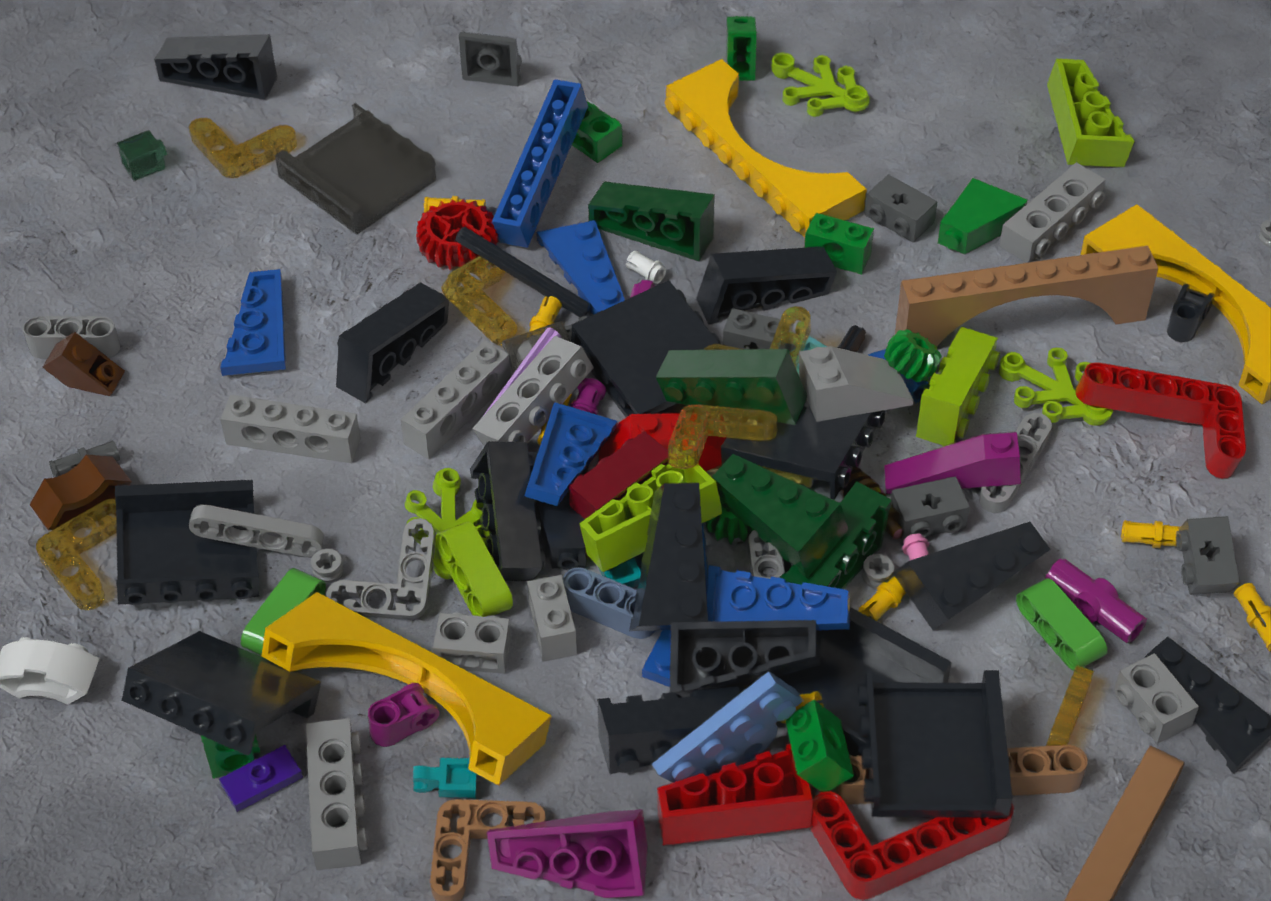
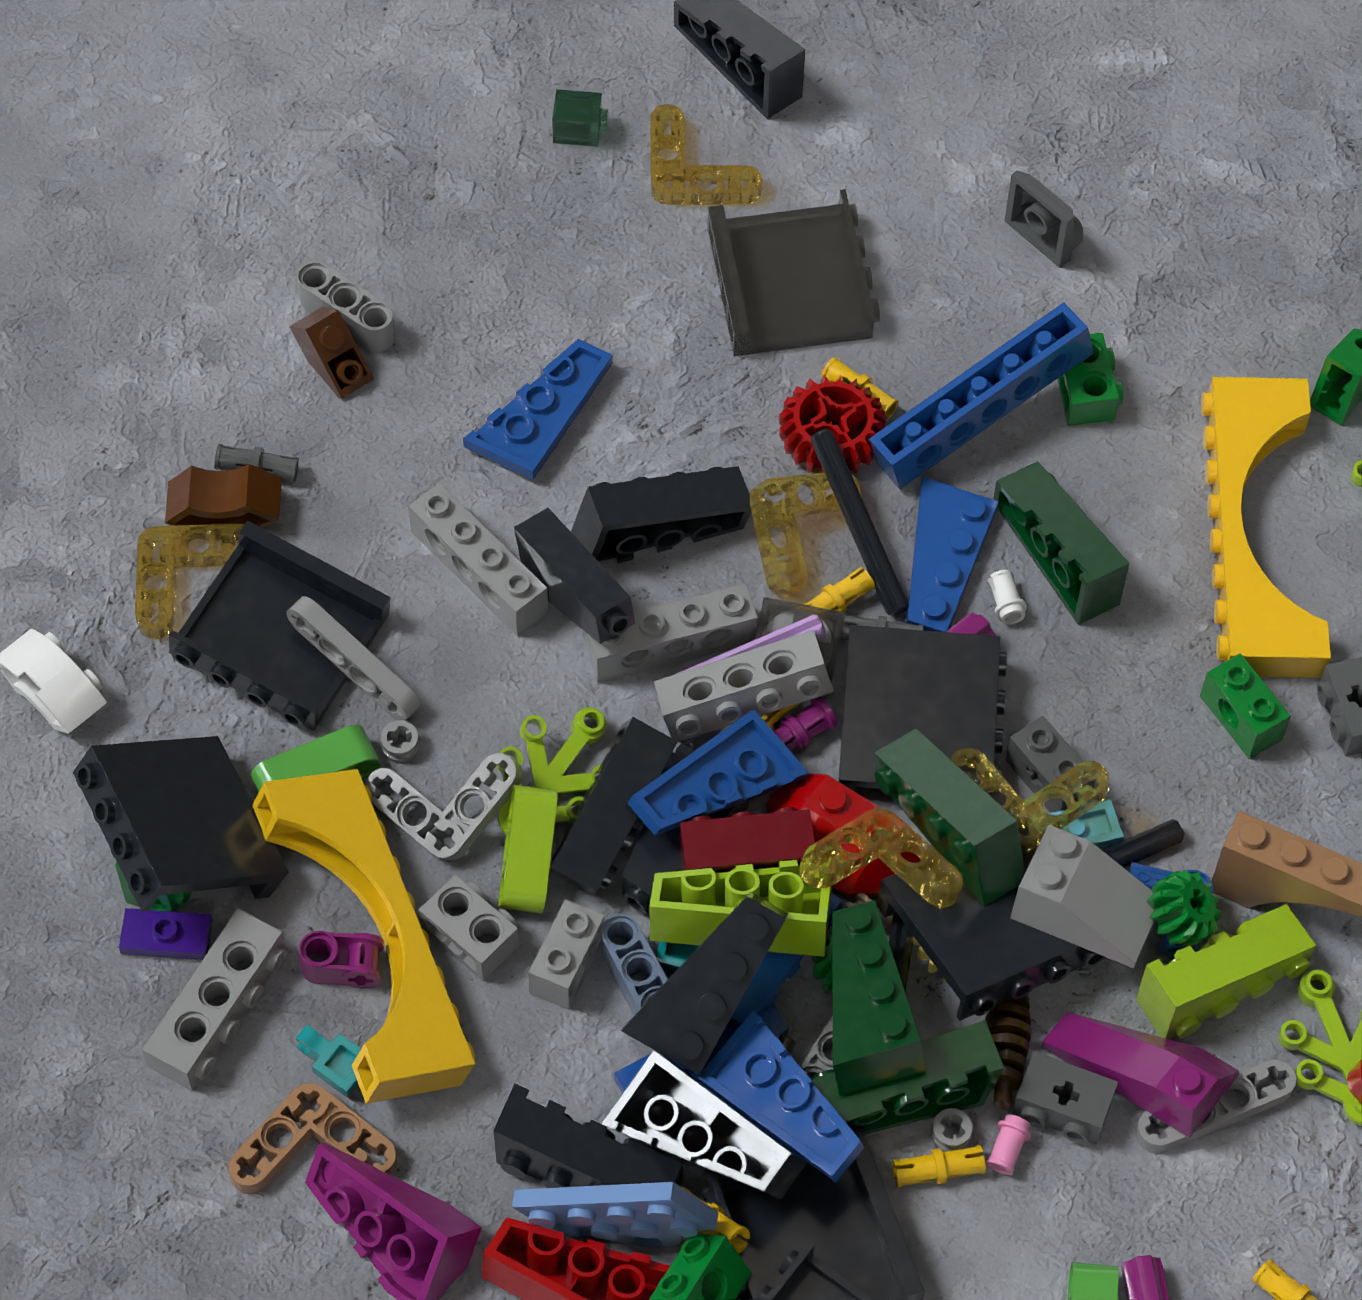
camera: 35 degrees right, 10 degrees up
(374, 393) = (573, 577): none -> black slope
(763, 279) = (1120, 699): black wedge -> none
(962, 574) = (1032, 1203): black wedge -> none

